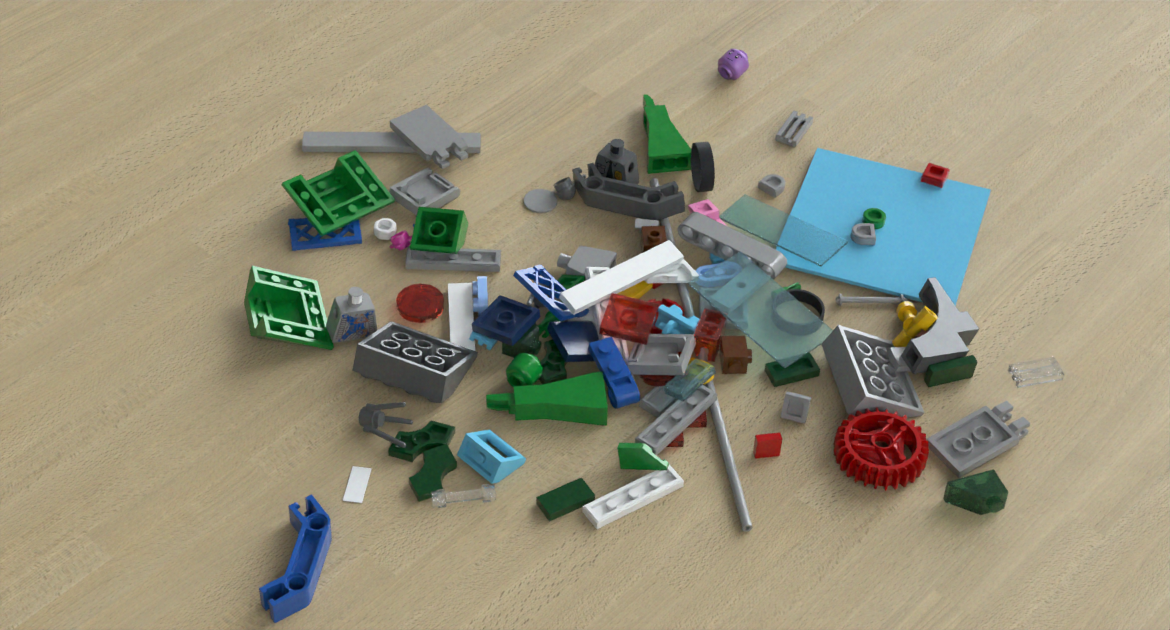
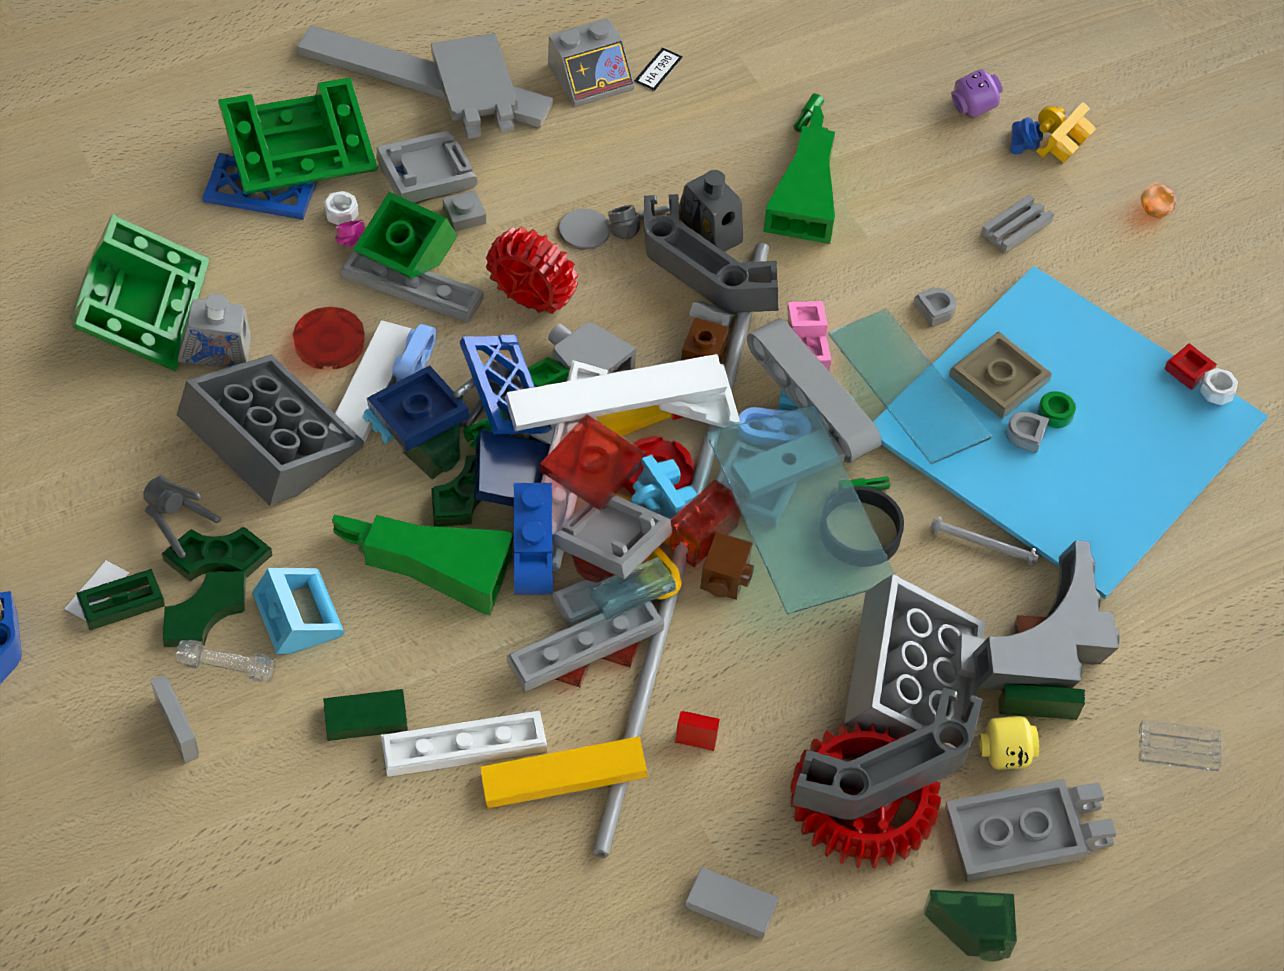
camera: 20 degrees right, 10 degrees up
(380, 485) = (122, 604): none -> dark green tile
(453, 535) = (175, 718): none -> light grey tile
(464, 204) = (464, 210): none -> light grey plate
(492, 106) = (590, 62): none -> slope
(524, 370) = (408, 494): green head -> none
(529, 227) = (531, 270): none -> red gear
(533, 101) = (658, 69): none -> sticker
(638, 101) = (806, 112): none -> green pin
(639, 457) = (498, 687): green tile -> none
(702, 166) = (834, 248): black tyre -> none
(702, 491) = (563, 772): none -> yellow tile
(772, 80) = (1025, 135): none -> blue plate
(795, 71) = (1054, 122): none -> yellow hips
(795, 407) = (772, 682): light grey tile -> none
(799, 370) = (816, 622): dark green tile -> none
(832, 209) = (1000, 374): none -> dark tan tile
(836, 529) = (732, 902): none -> light grey tile
(867, 94) = (1158, 200): none -> clear orange tile
(882, 438) = (891, 769): none -> dark grey piece
(912, 322) = (1027, 604): yellow bar -> none
(946, 396) = (1009, 743): none -> light yellow head
(957, 180) = (1219, 386): none -> white tile

